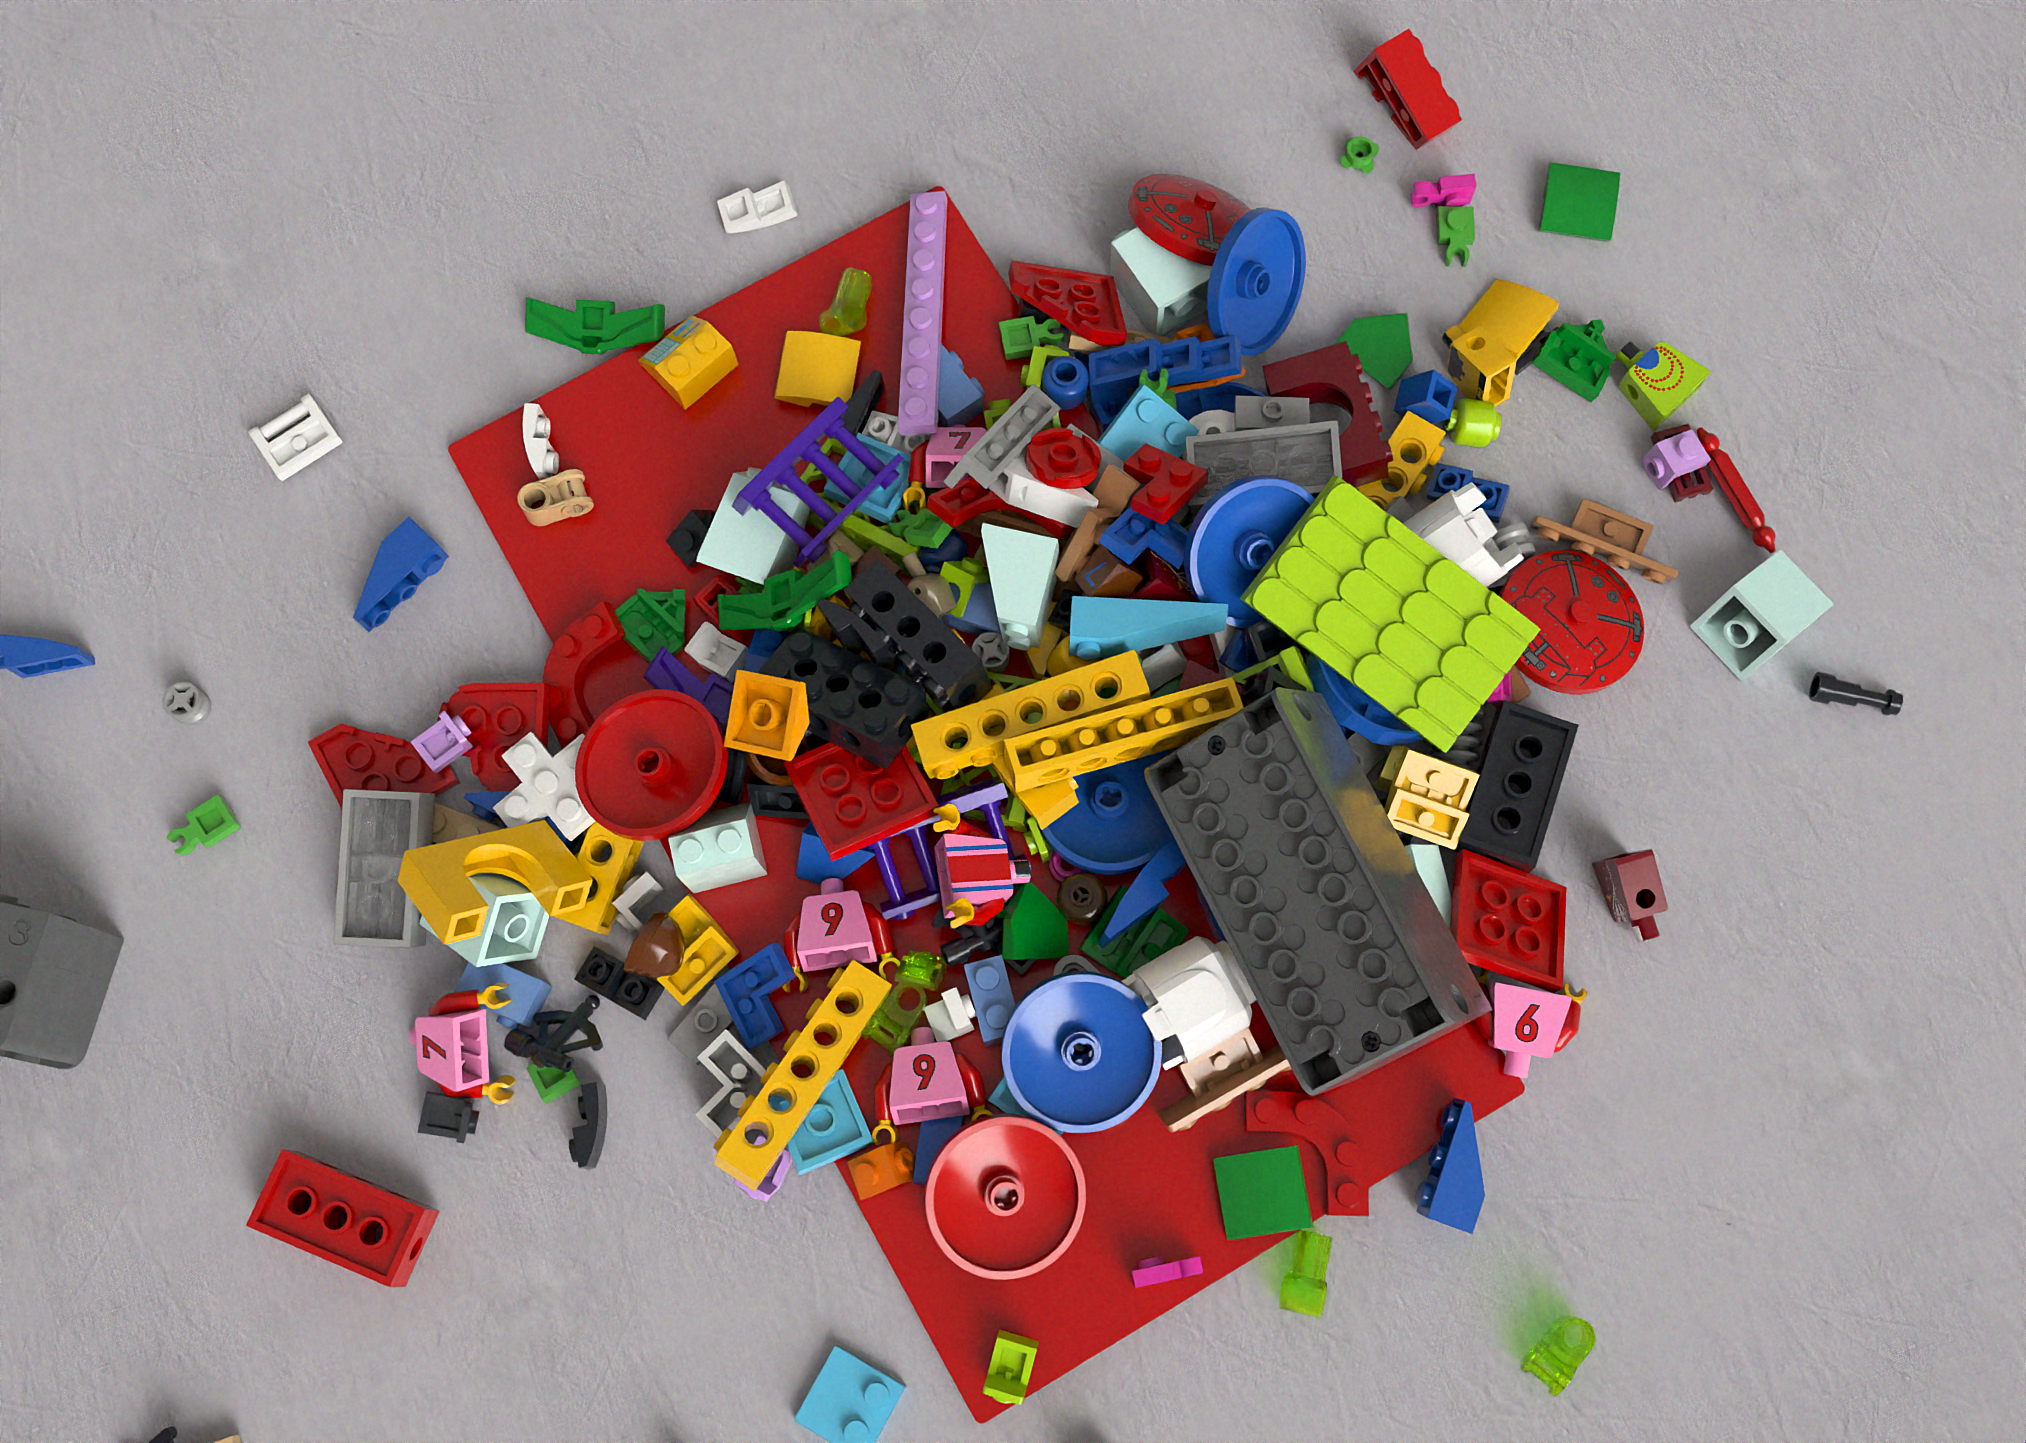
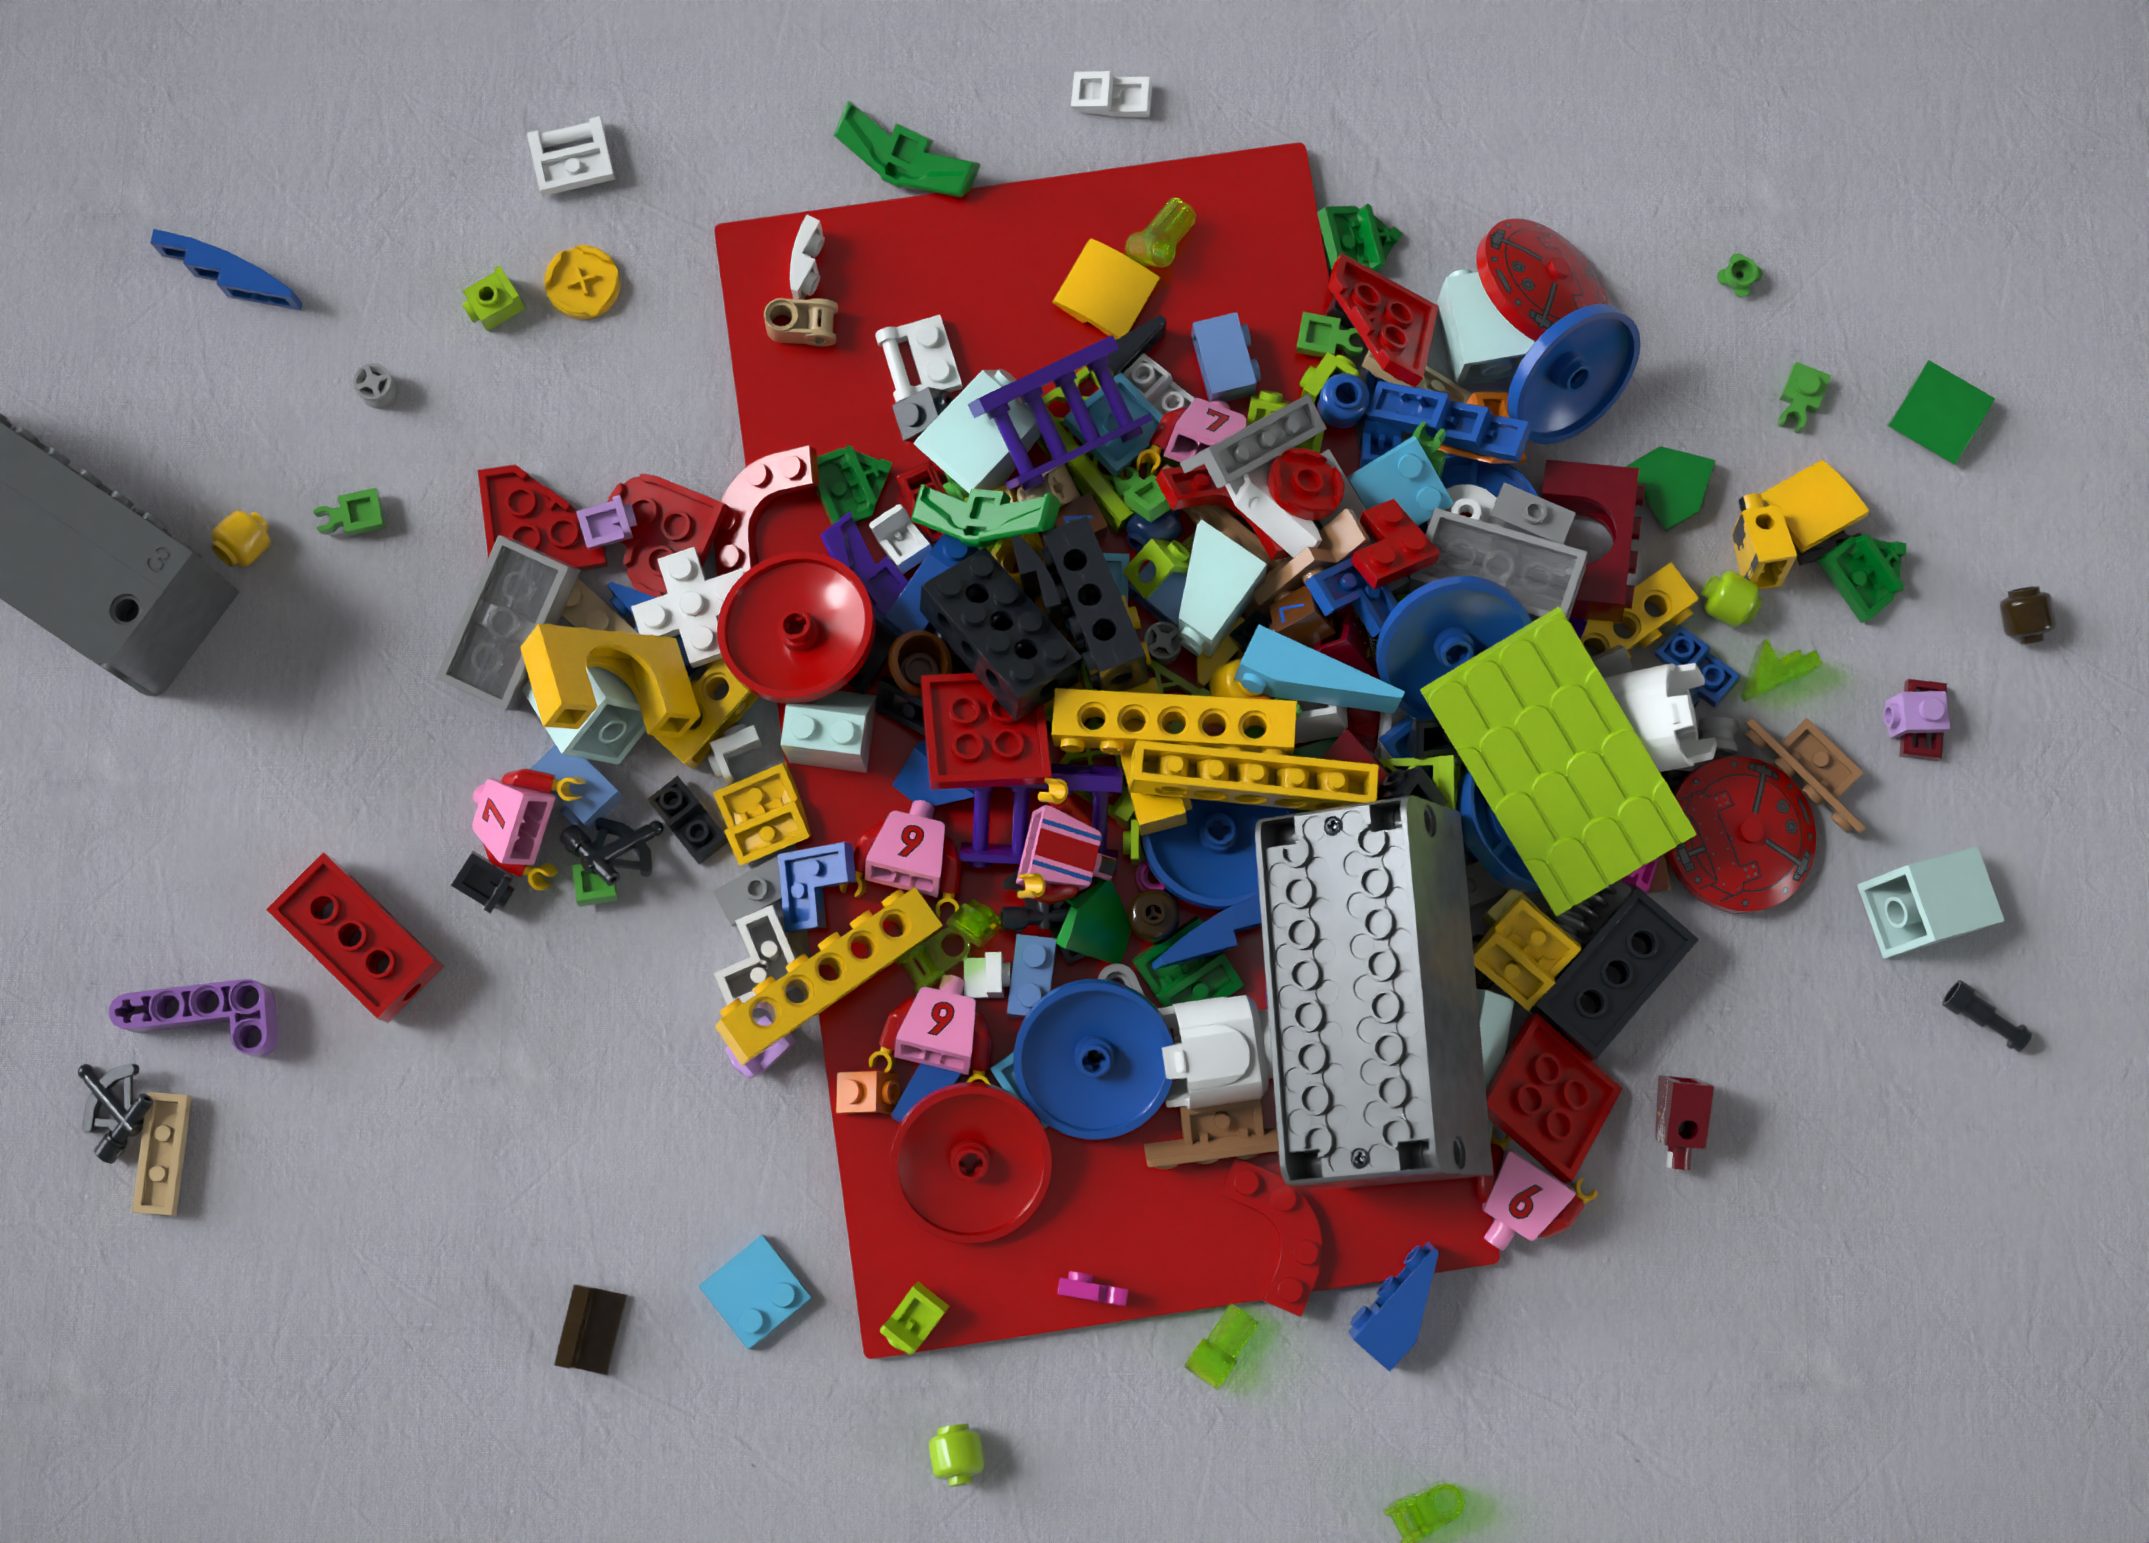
camera: 15 degrees right, 5 degrees up
(106, 889) = (240, 538): none -> yellow head
(212, 1352) = (193, 1011): none -> medium lavender beam
(268, 587) = (497, 310): none -> lime brick
(345, 542) = (582, 282): none -> yellow tile
(399, 568) = (627, 329): blue slope -> none
(590, 1138) = (605, 954): black slope -> none
(657, 948) = (736, 803): reddish brown hat -> none
(683, 484) = (930, 353): none -> white plate
(690, 360) = (984, 230): yellow slope -> none
(767, 715) = (923, 626): light orange slope -> none
(830, 1128) = (832, 1037): medium azure plate -> none
(923, 314) = (1232, 274): lavender plate -> none
(929, 587) = (1126, 560): dark tan piece -> none
(1017, 242) = (1357, 235): none -> green slope
(1262, 1192) = (1211, 1256): green slope -> none
(1410, 89) = (1820, 229): red wedge -> none
(1426, 396) = (1695, 555): blue brick -> none
(1448, 191) = (1811, 349): dark pink plate -> none
(1533, 472) = (1768, 673): none -> clear neon green slope
(1659, 380) = (1937, 628): lime torso -> none
(1730, 339) = (2027, 614): none -> dark brown head
(1737, 491) = (1963, 769): red wheel -> none

